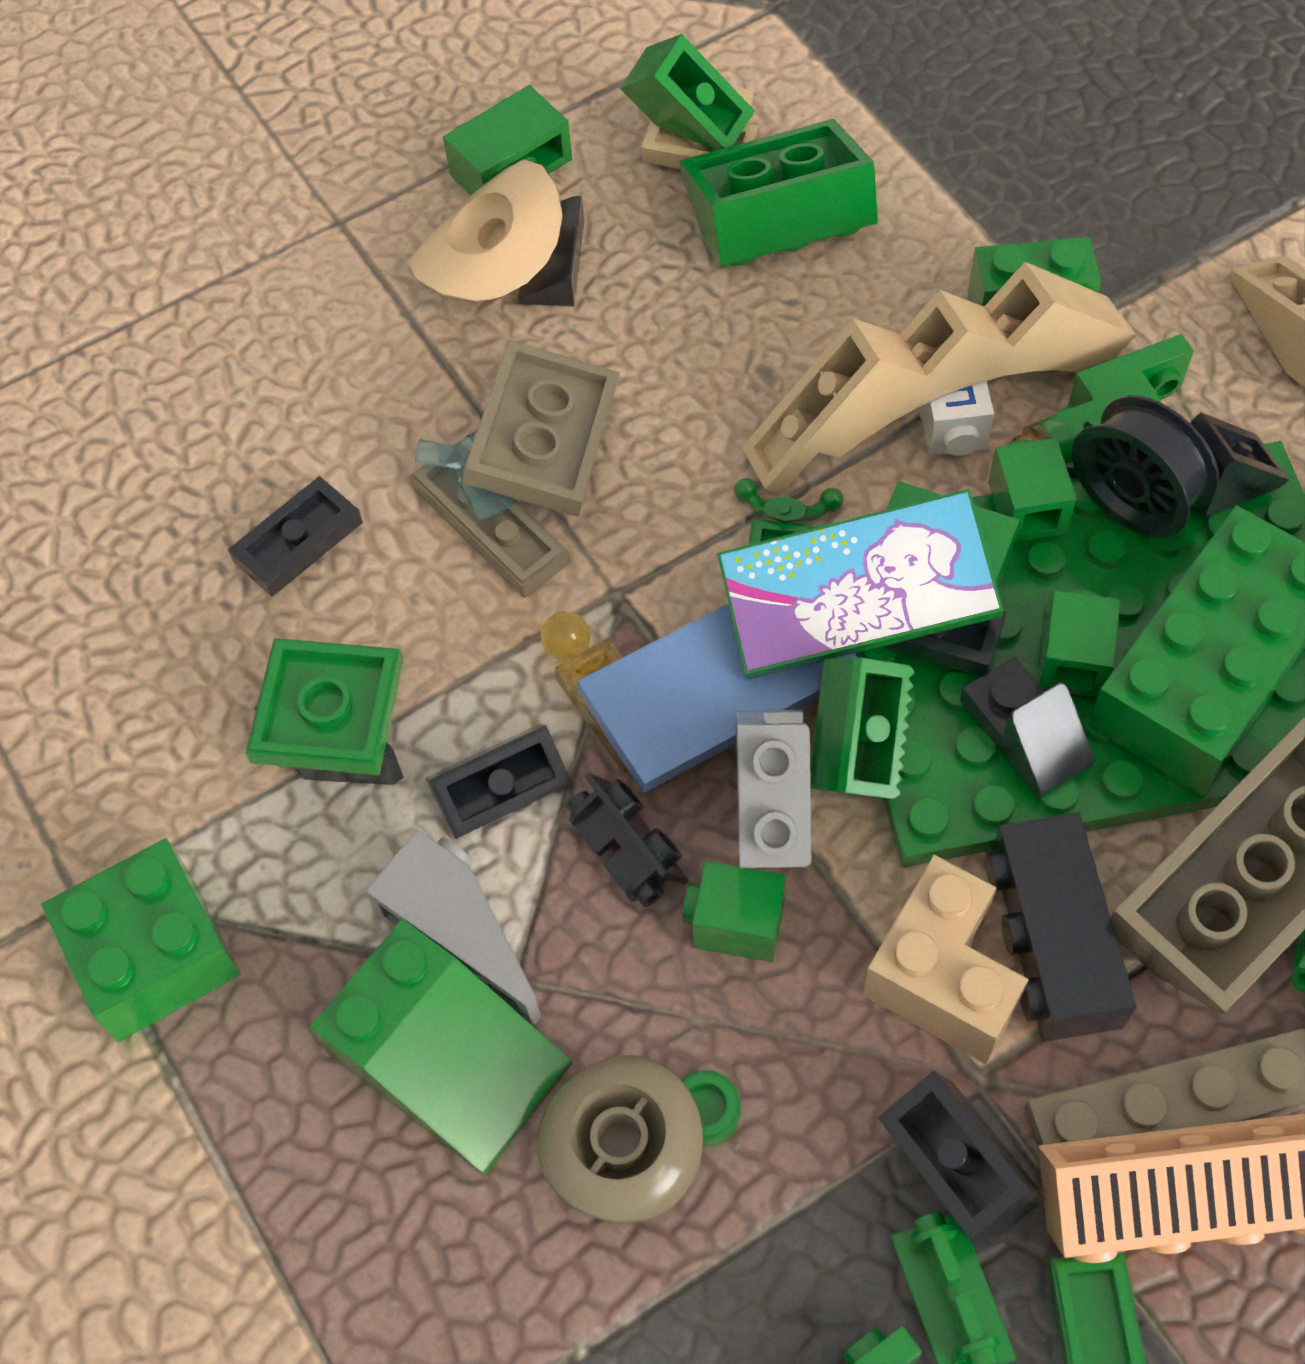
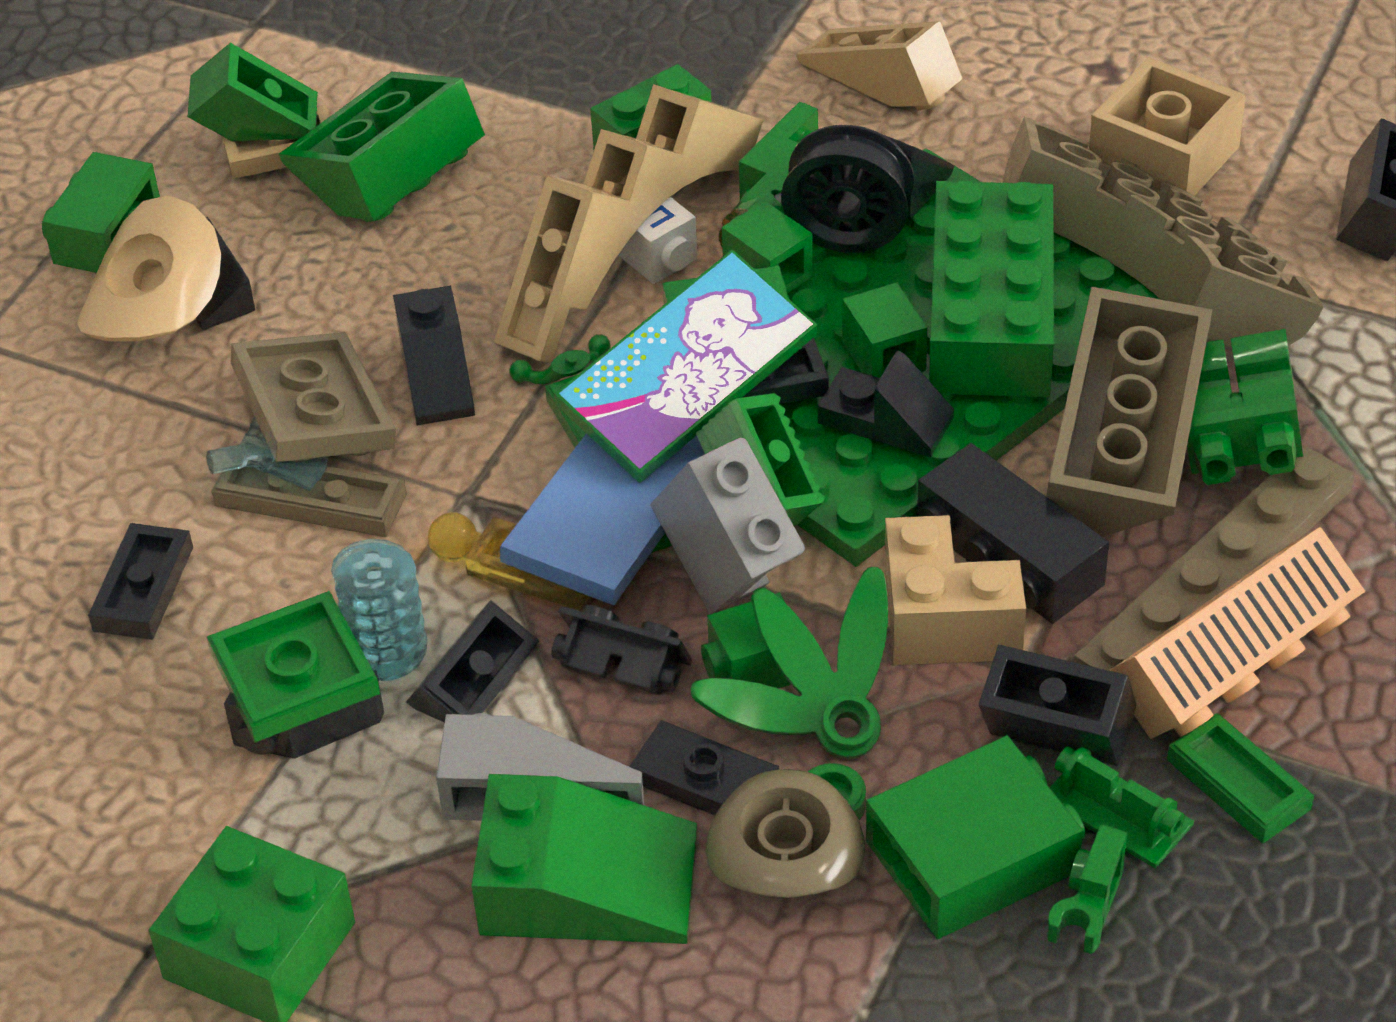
camera: 35 degrees left, 15 degrees down
(438, 684) = (382, 605): none -> clear light blue piece
(610, 1005) = (694, 767): none -> black plate
(674, 437) = (433, 355): none -> black slope
(759, 968) = (824, 693): none -> green plant
(796, 1243) = (973, 835): none -> green brick

